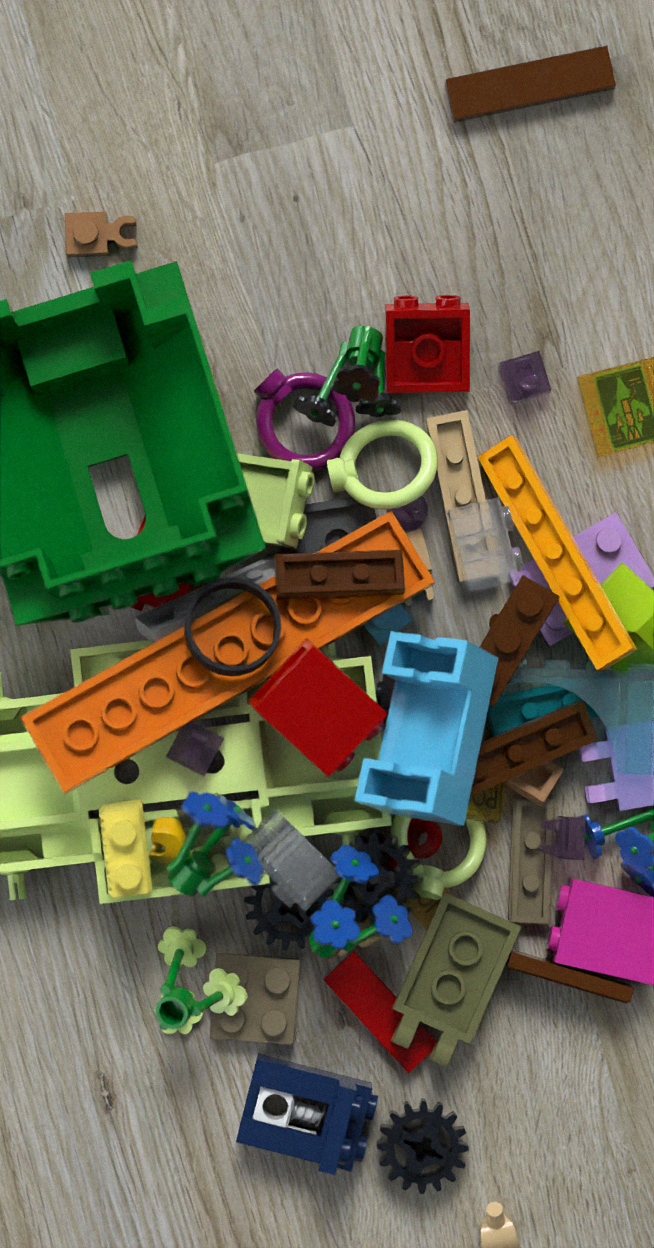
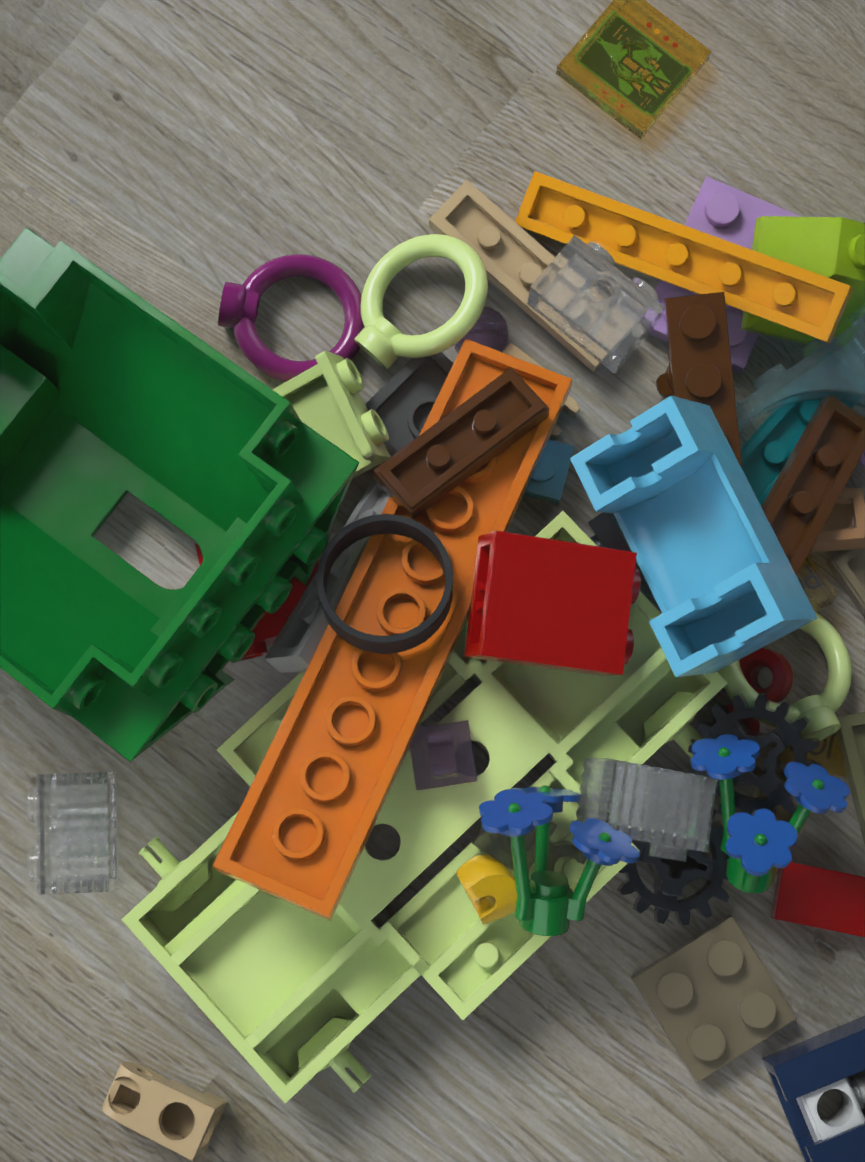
camera: 35 degrees left, 5 degrees down
(125, 848) = (448, 932): light yellow brick -> none
(177, 1005) = (639, 1073): plant -> none
(357, 383) = (323, 221): plant -> none
(427, 345) = (373, 142): red plate -> none
(524, 377) = (501, 107): clear purple tile -> none

